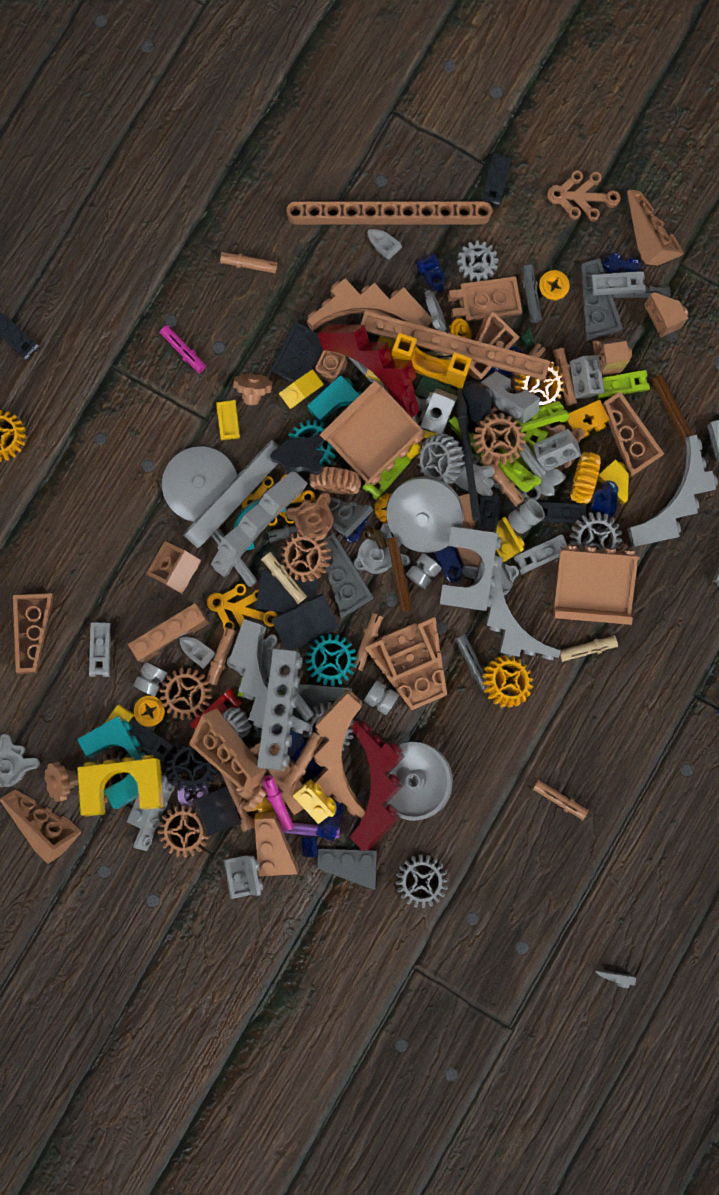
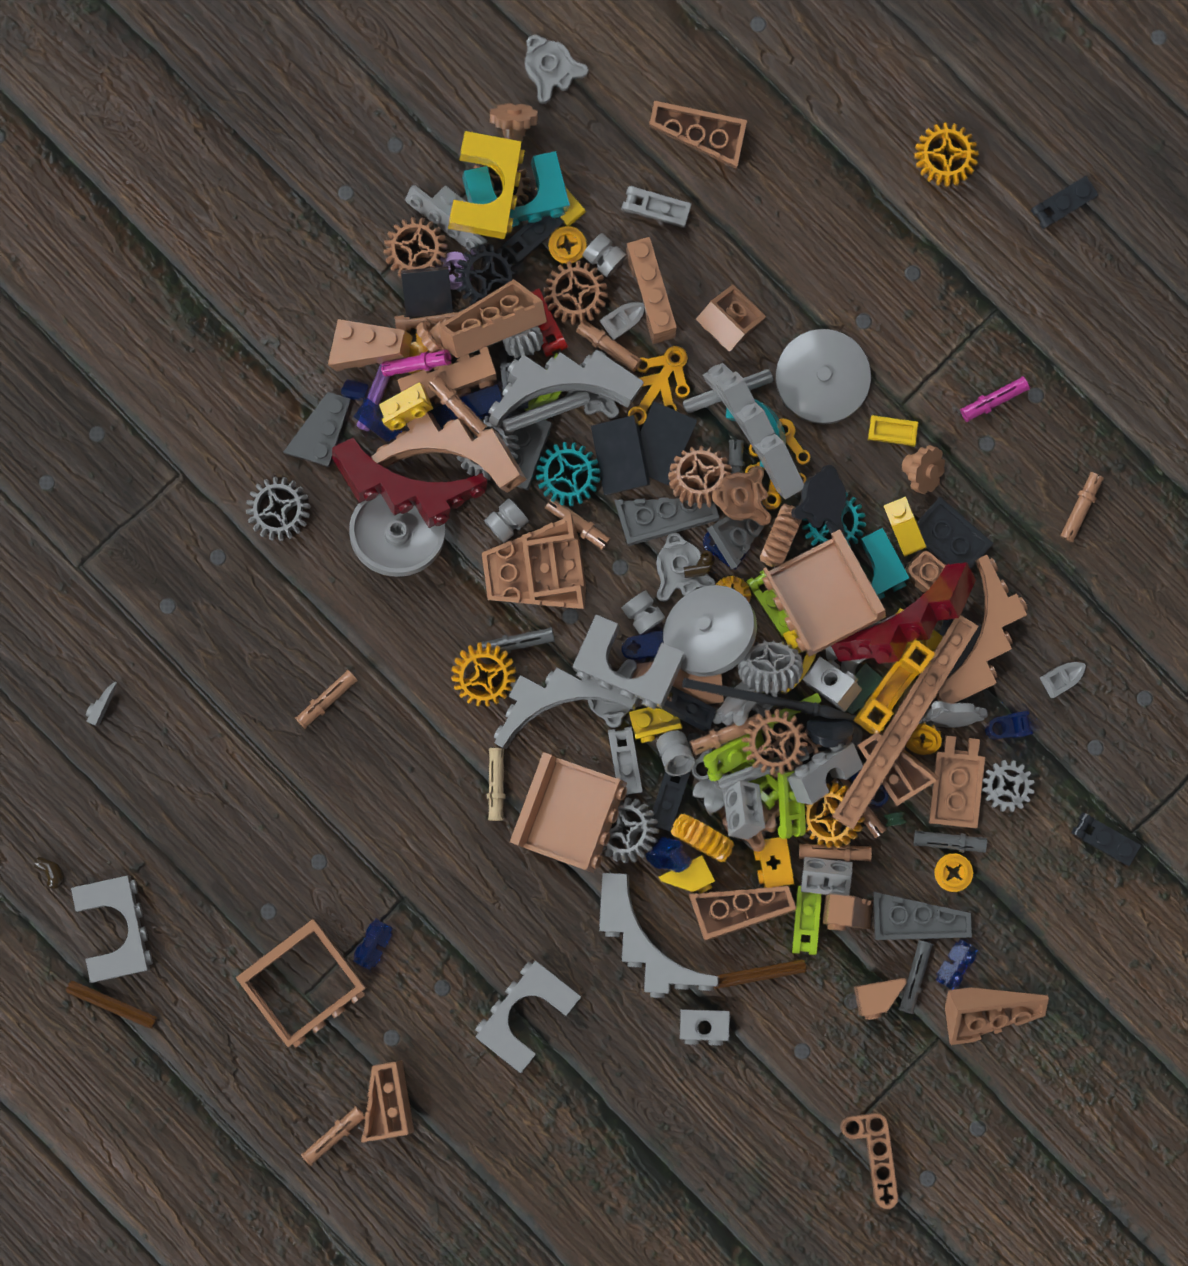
camera: 105 degrees right, 0 degrees up
(43, 829) = (463, 87): nougat wedge -> none
(232, 496) = (796, 408): light grey beam -> none
(243, 876) = (343, 301): light grey bracket -> none
(280, 660) = (516, 379): light grey brick -> none
(284, 578) = (689, 439): tan pin -> none
(397, 208) = (1106, 685): nougat beam -> none
(399, 574) = (648, 582): reddish brown axle -> none
(580, 196) = (1057, 938): nougat plant -> none
(618, 283) = (932, 948): light grey plate -> none

